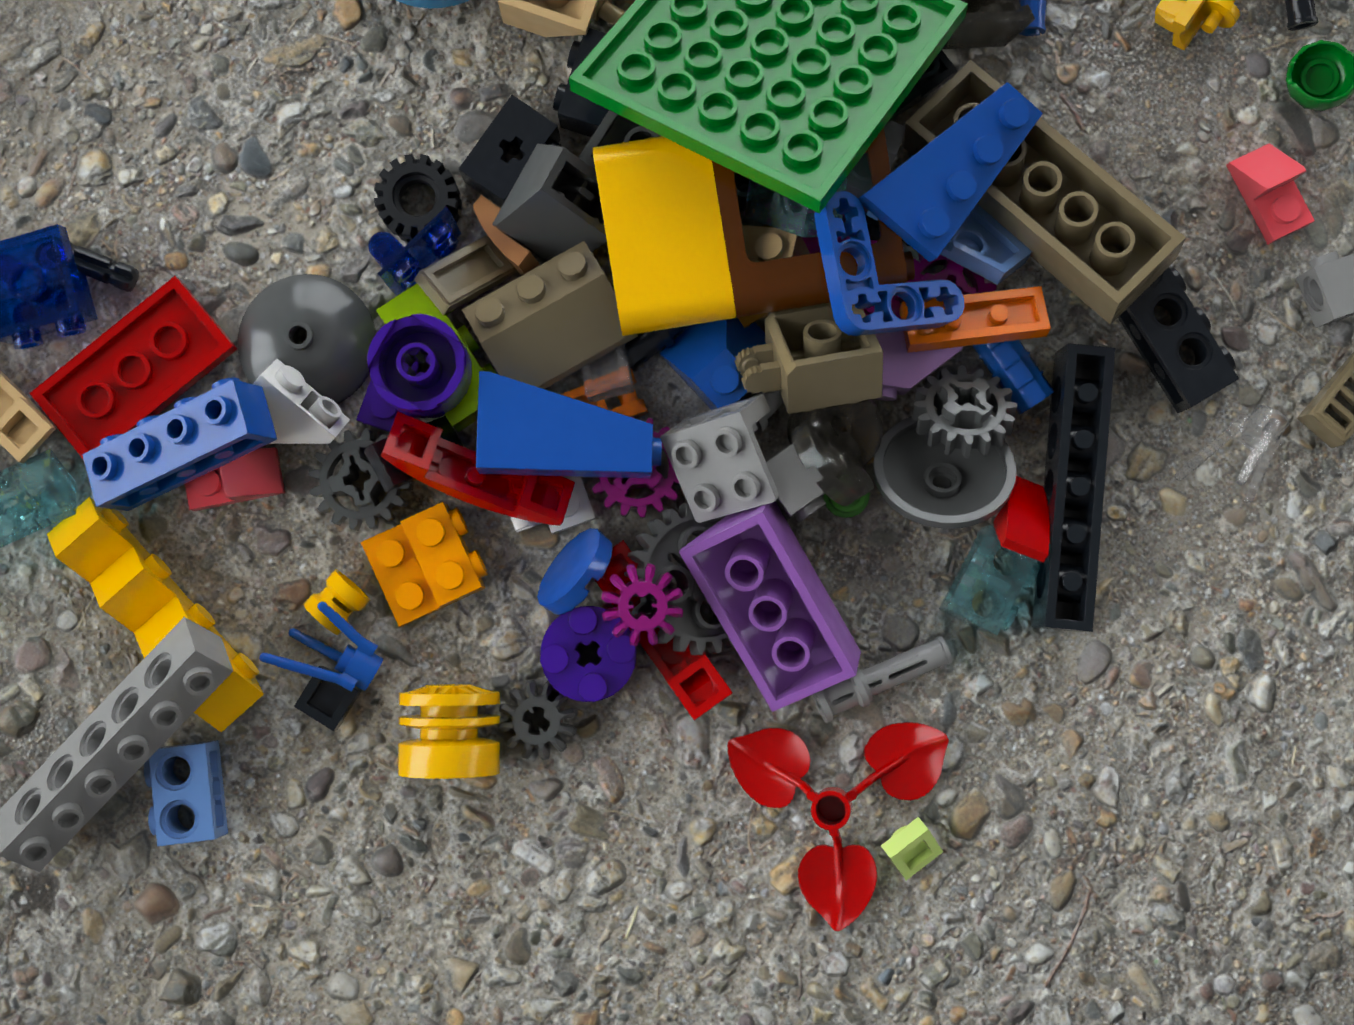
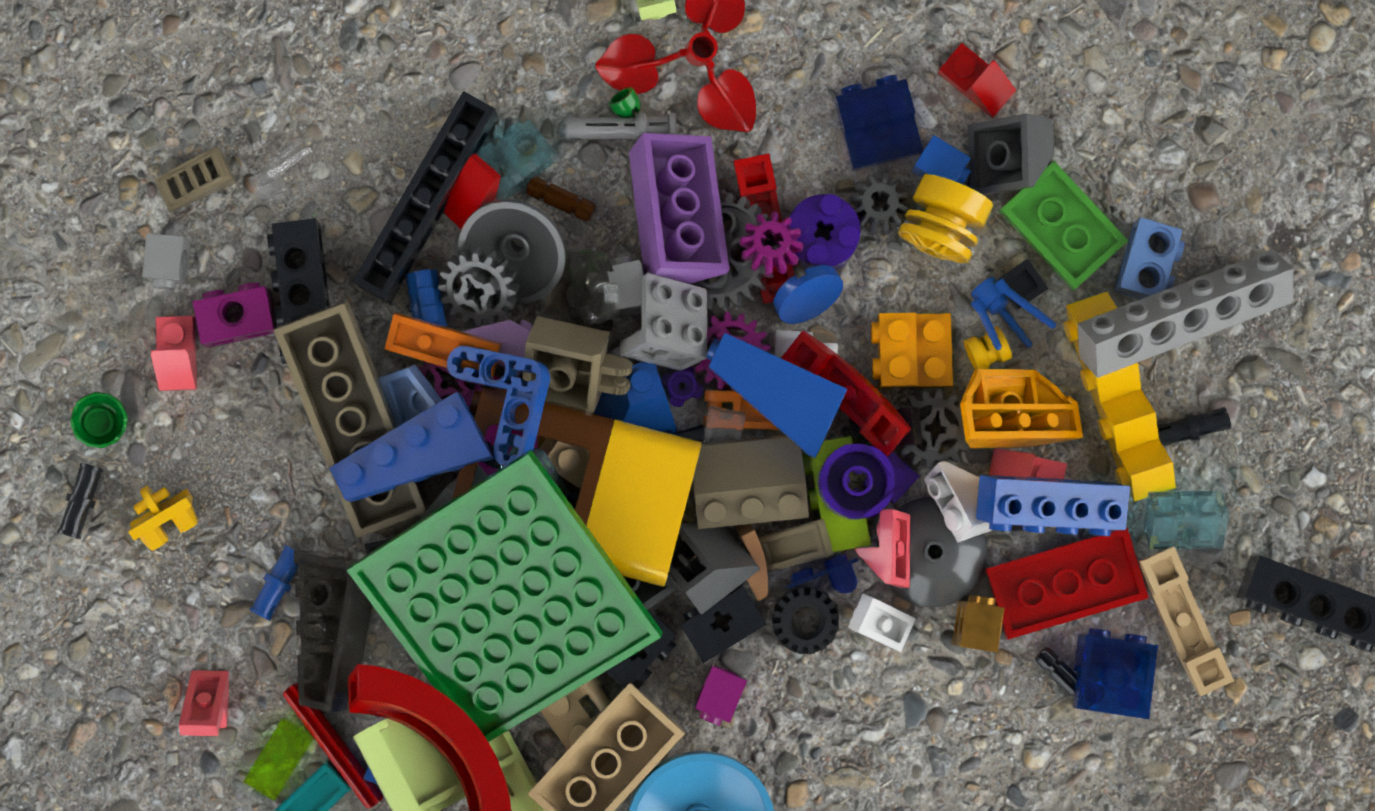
camera: 155 degrees left, 0 degrees up
(55, 618) = (1194, 426): none -> black pin
(212, 271) = (978, 624): none -> pearl gold brick
(268, 541) = (1017, 410): none -> light orange wedge
(307, 791) = (1063, 226): none -> bright green plate
(331, 233) = (881, 622): none -> white slope
(345, 305) = (892, 556): none -> coral slope
(407, 848) = (1009, 152): none -> dark grey slope
(477, 67) = (719, 695): none -> magenta brick
(482, 801) = (943, 161): none -> blue brick
(484, 924) = (977, 80): none -> red slope
(580, 819) = (878, 122): none -> clear blue plate
(674, 393) = (679, 396): none -> dark purple plate
(892, 709) = (624, 102): none -> green hinge
(915, 562) = (560, 198): none -> reddish brown axle
(1249, 245) = (213, 309): none -> magenta brick

